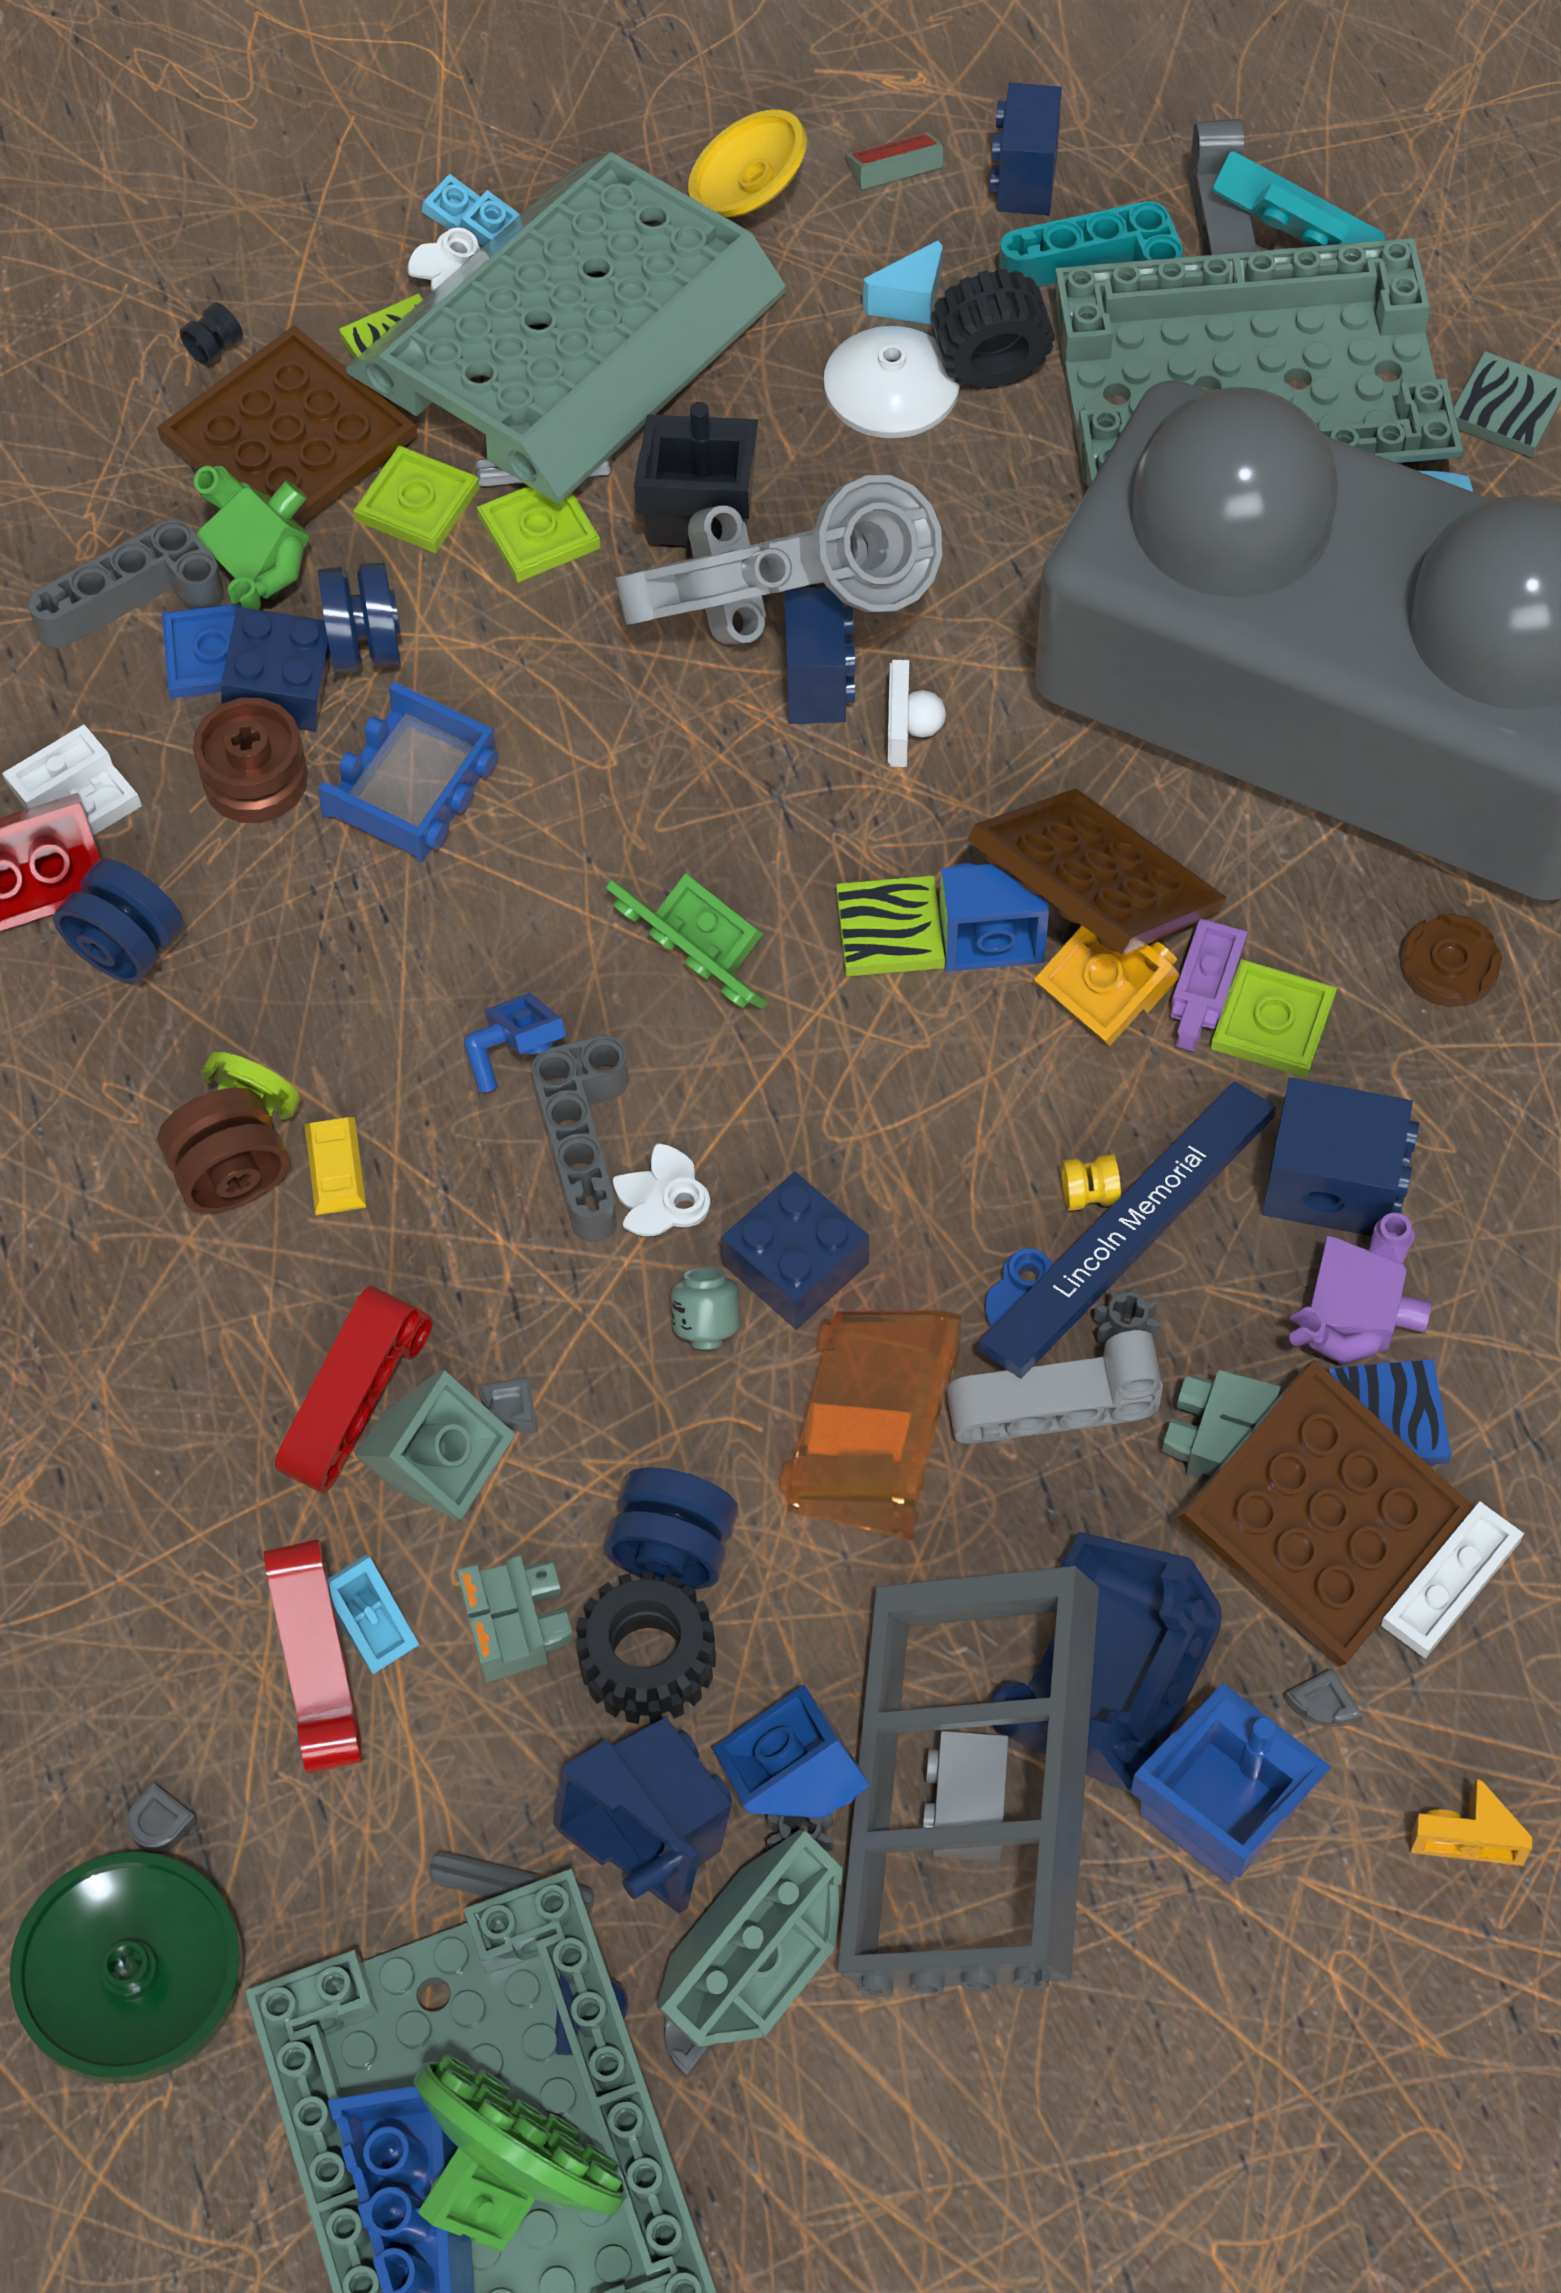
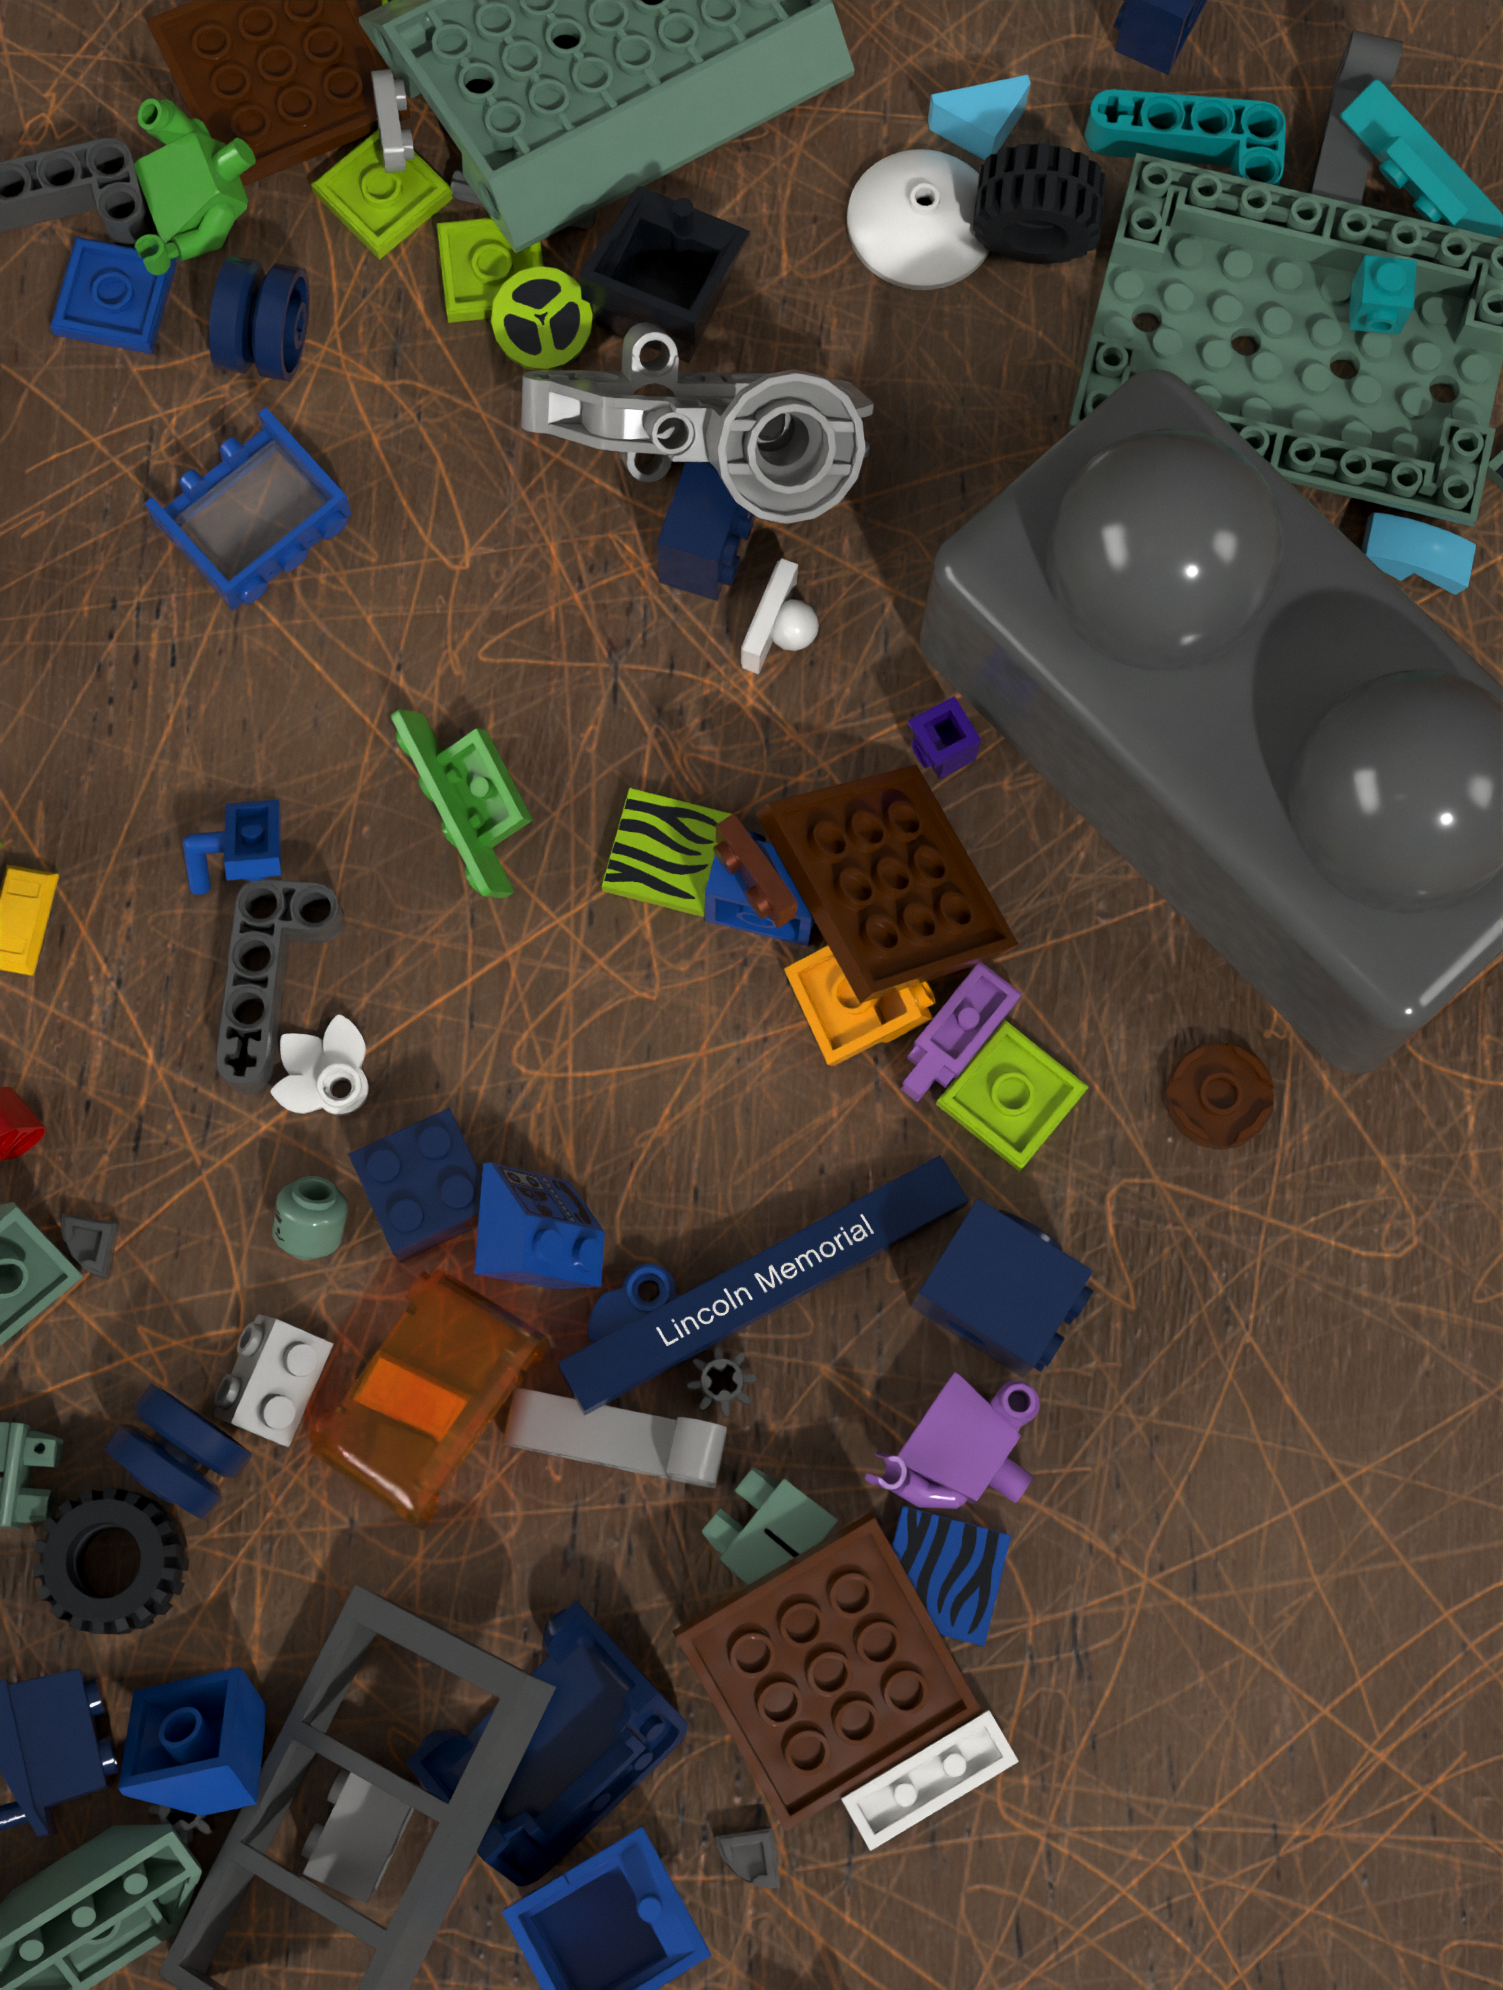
camera: 15 degrees right, 15 degrees up
(250, 760) = (95, 441): copper wheel -> none
(279, 661) = (155, 347): dark blue brick -> none
(403, 427) = (389, 99): none -> light grey plate
(598, 546) = (541, 318): none -> lime tile
(728, 1448) = (271, 1379): none -> light grey bracket
(916, 1252) = (536, 1231): none -> blue slope
(987, 880) = (766, 889): none -> copper plate
(1085, 762) = (944, 738): none -> dark purple brick
(1099, 1187) = (760, 1218): yellow wheel -> none
(1307, 309) = (1382, 294): none -> teal brick

